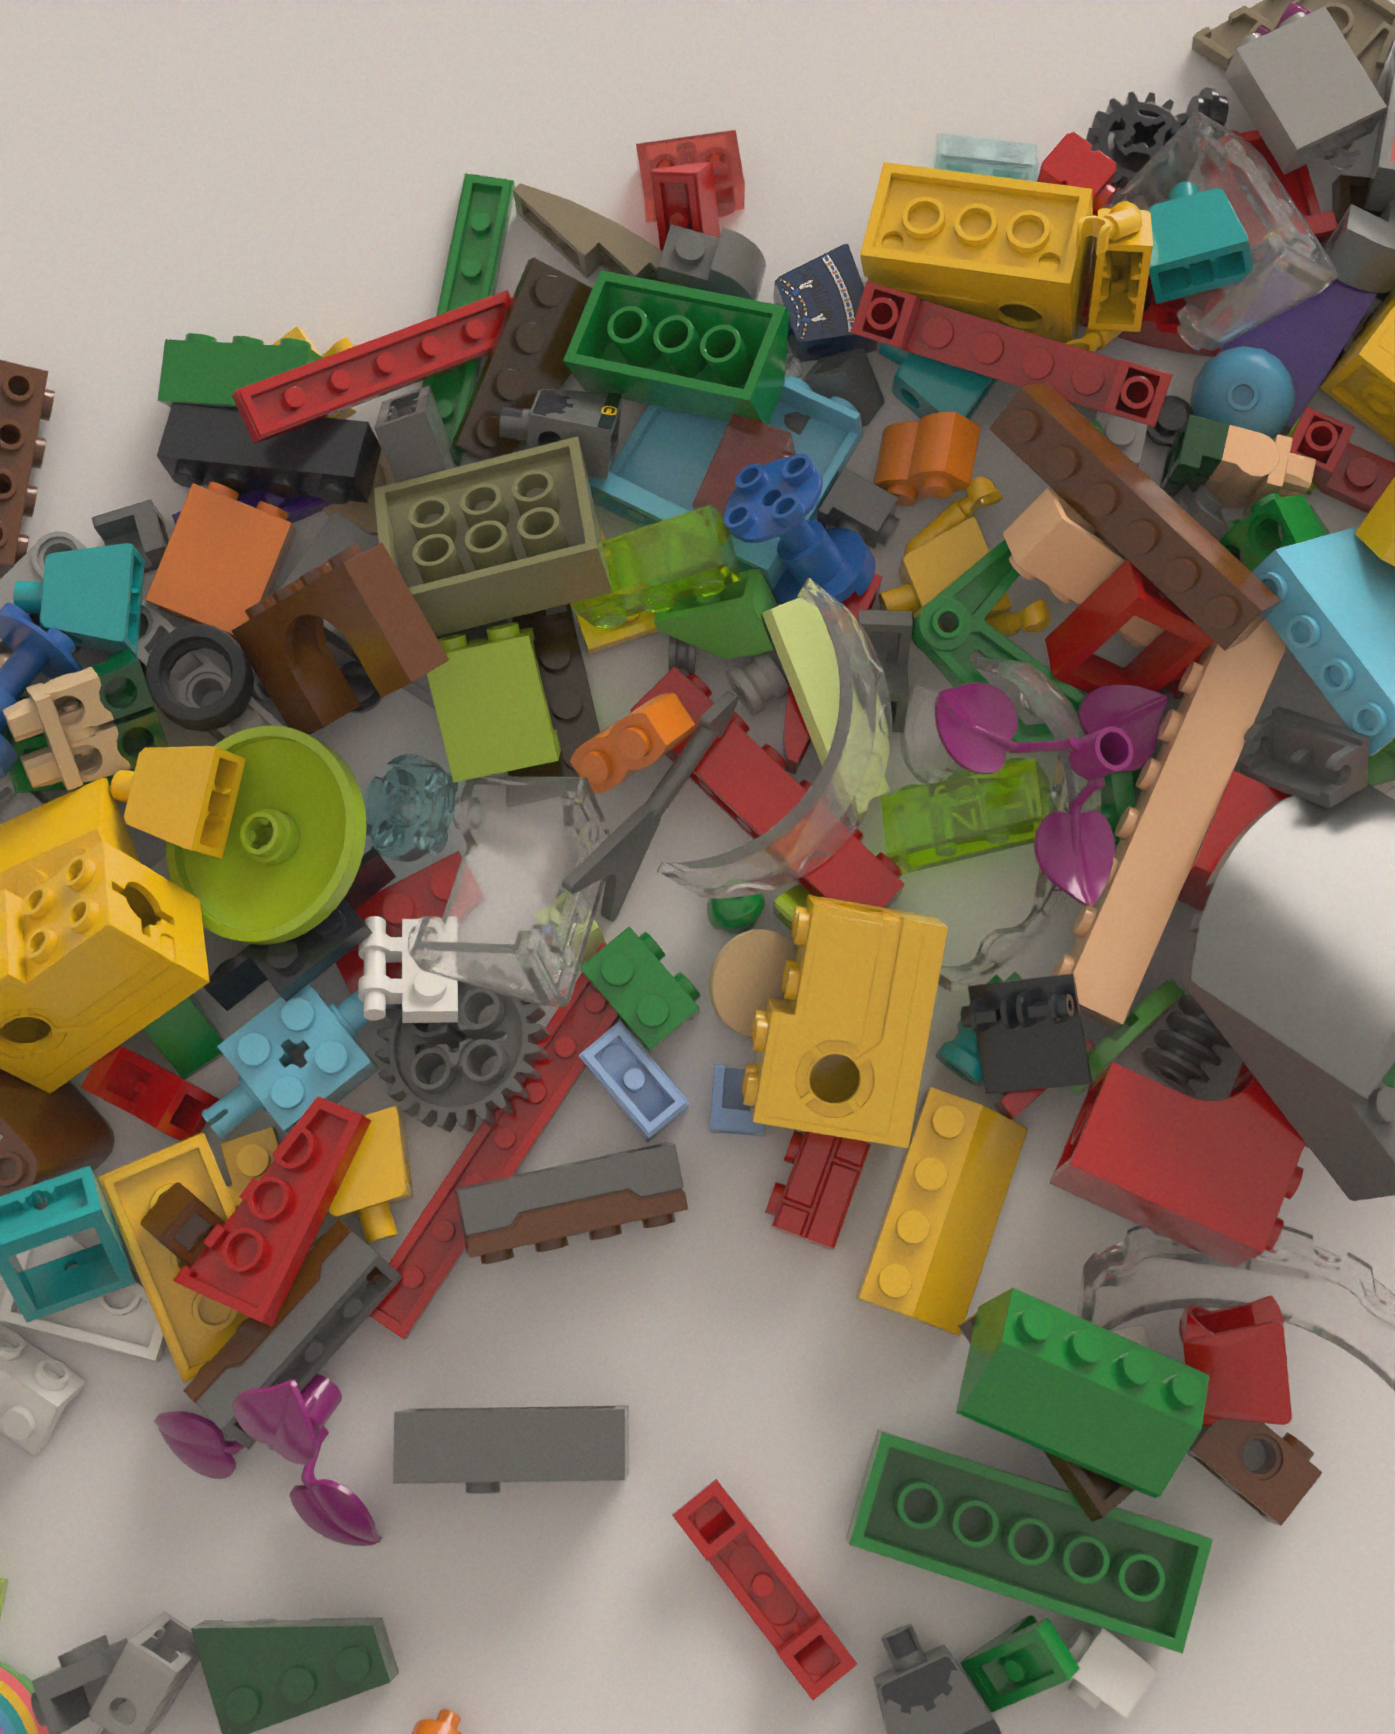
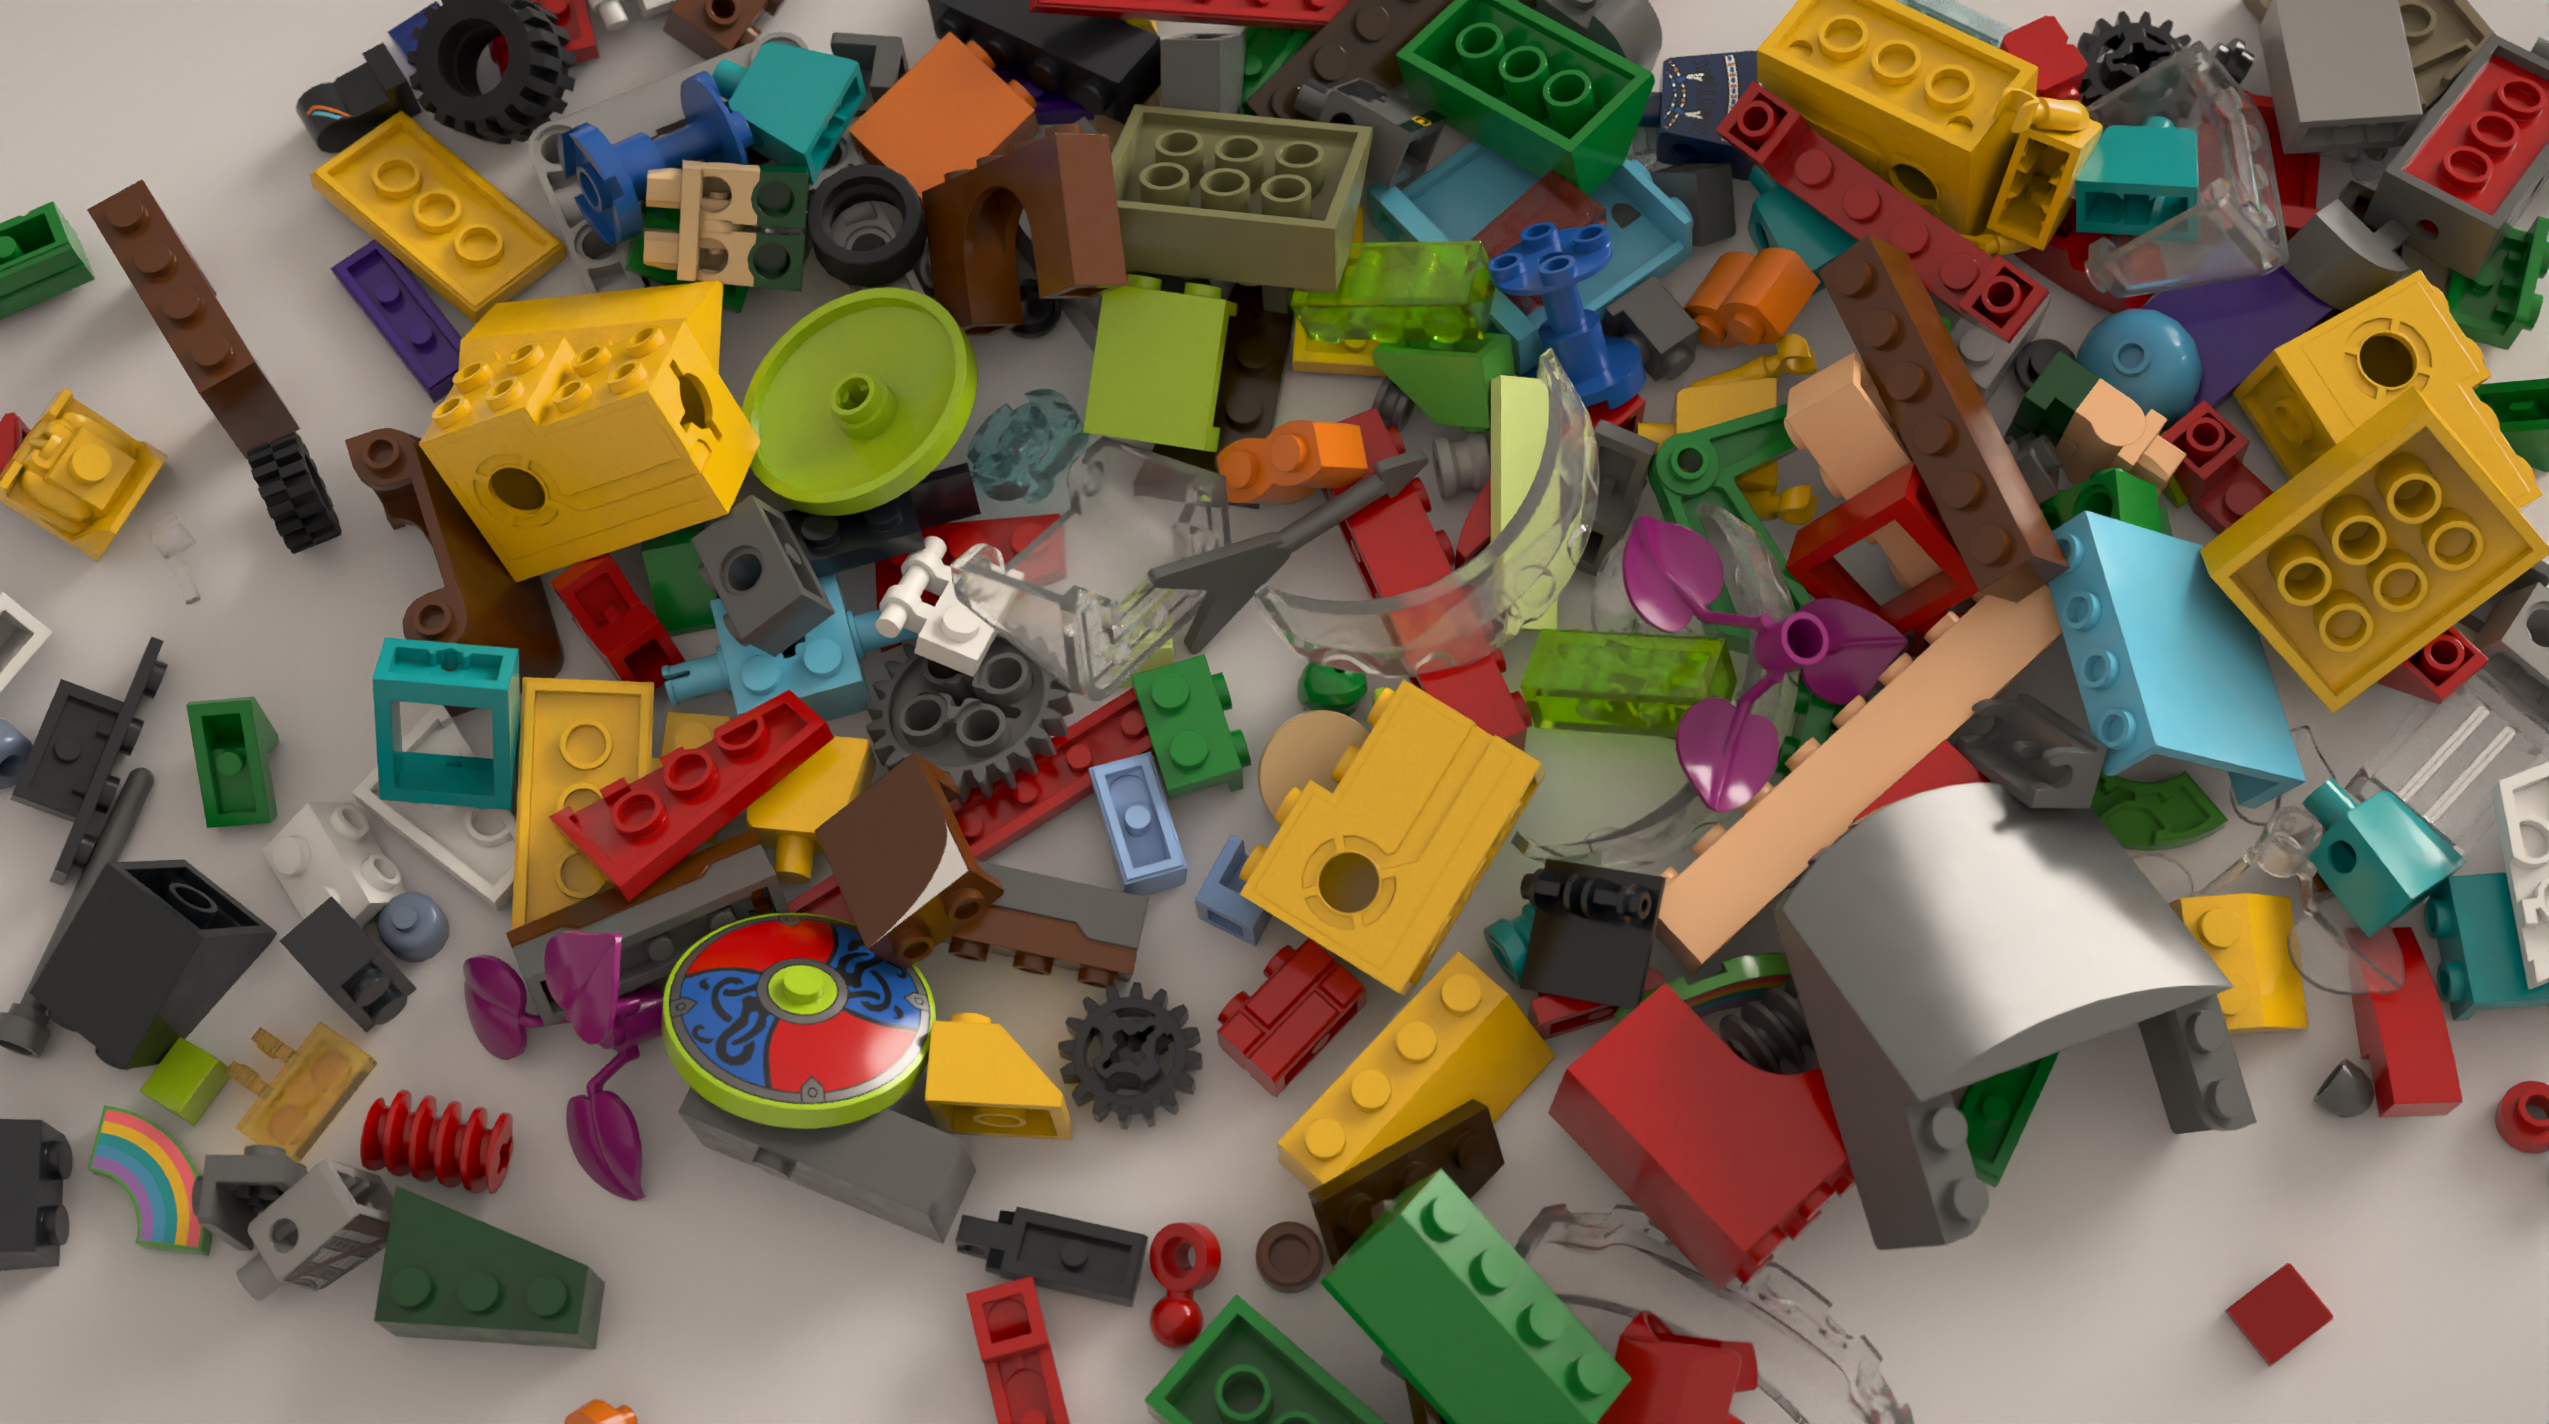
camera: 25 degrees right, 10 degrees down
(66, 1466) = (349, 965): none -> black piece
(75, 1576) = (305, 1091): none -> clear yellow hinge
(97, 1403) = (413, 927): none -> sand blue piece
(181, 1223) = (586, 763): reddish brown slope -> none
(182, 795) = (793, 326): yellow torso -> none
(203, 1573) = (437, 1145): none -> red piece
(285, 1021) = (788, 595): none -> dark grey brick
(451, 1366) = (796, 1022): none -> dish
(478, 1203) = (906, 863): none -> reddish brown panel
(615, 1342) = (989, 1084): none -> yellow slope
(687, 1257) = (1112, 1074): none -> black gear
(724, 1447) = (1058, 1253): none -> black hinge
(833, 1455) = (1177, 1318): none -> red plate
(897, 1371) = (1289, 1257): none -> reddish brown tile
(969, 1276) = (1457, 1143): none -> dark brown wing

